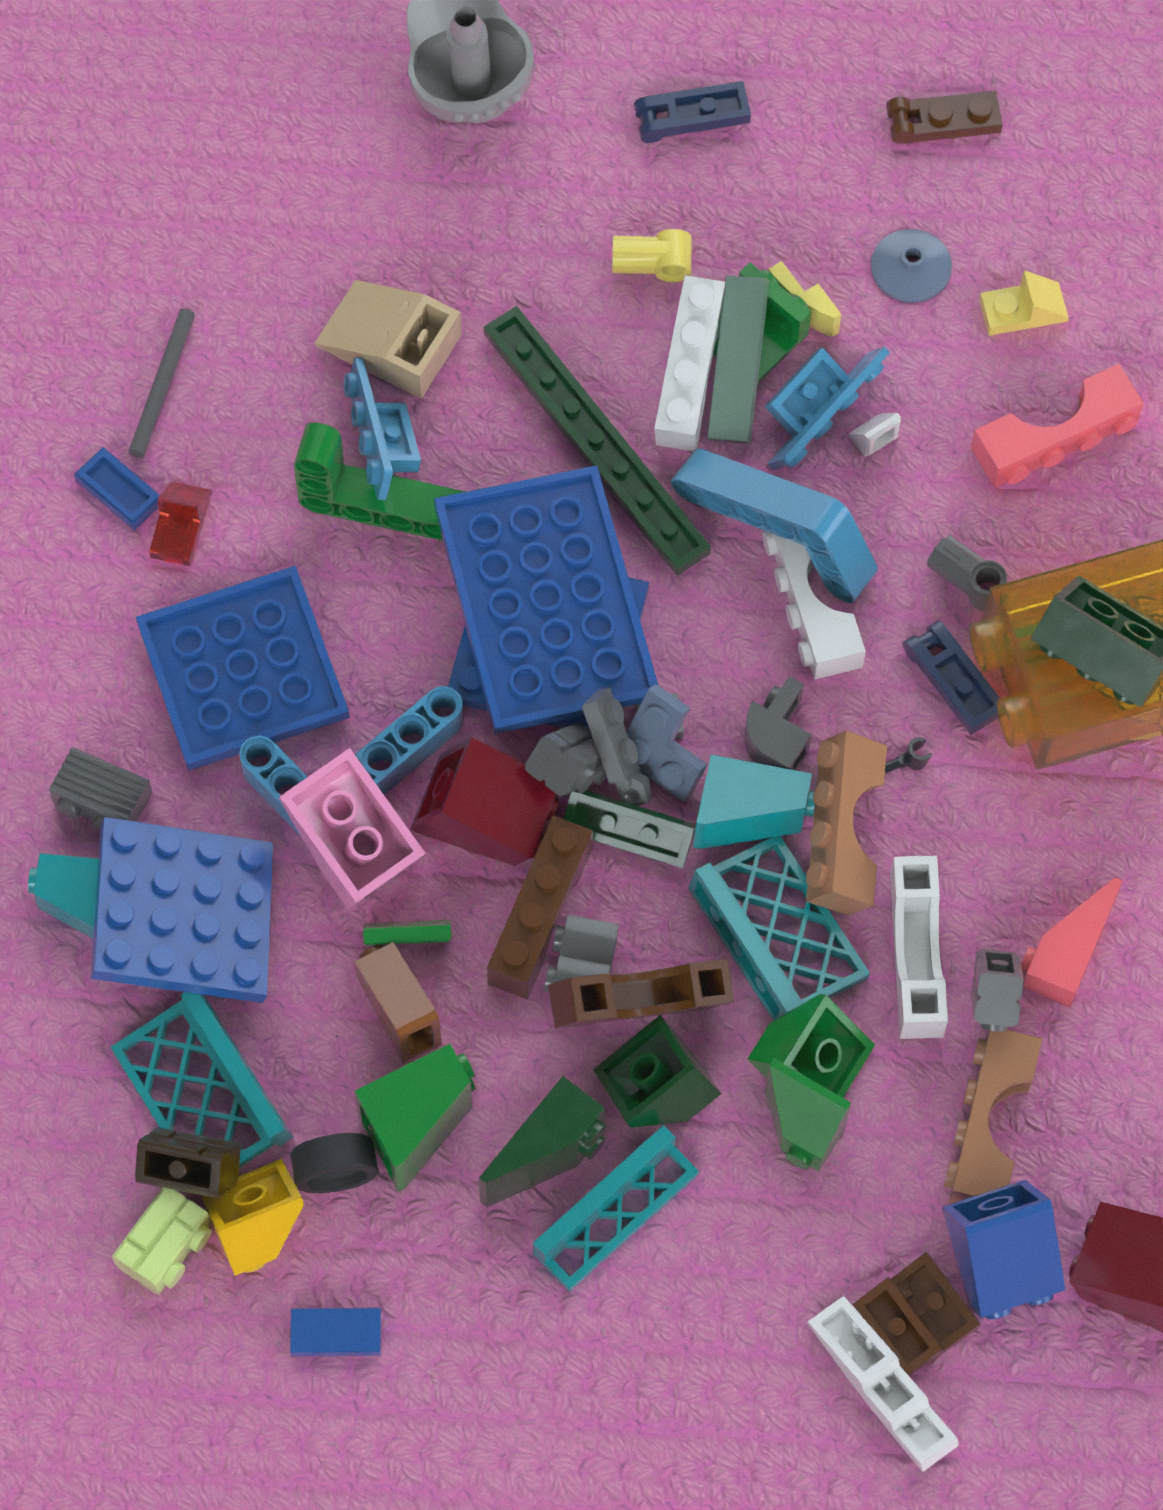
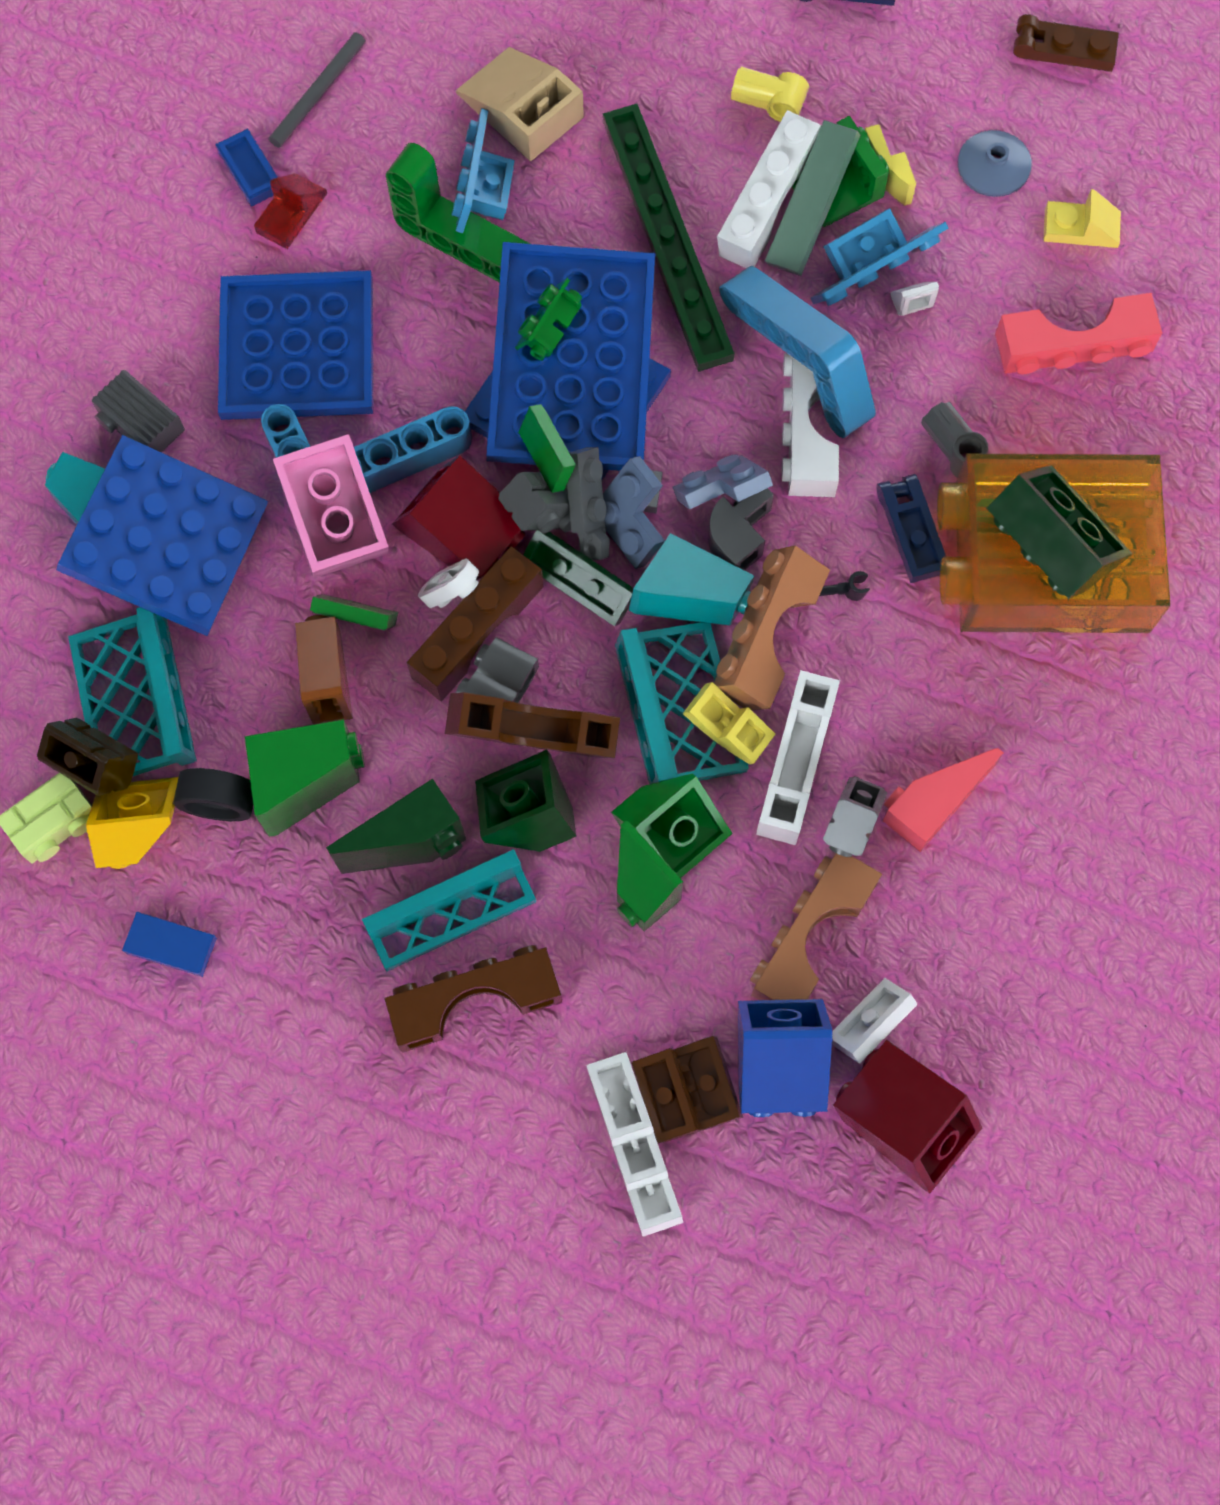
camera: 20 degrees right, 5 degrees up
(500, 873) = (449, 583): none -> white plate
(515, 551) = (556, 306): none -> green hinge
(560, 703) = (547, 448): none -> green tile
(717, 1256) = (422, 1012): none -> reddish brown arch
(751, 676) = (732, 475): none -> sand blue plate
(838, 936) = (728, 725): none -> light yellow slope
(1081, 1186) = (872, 1020): none -> white plate

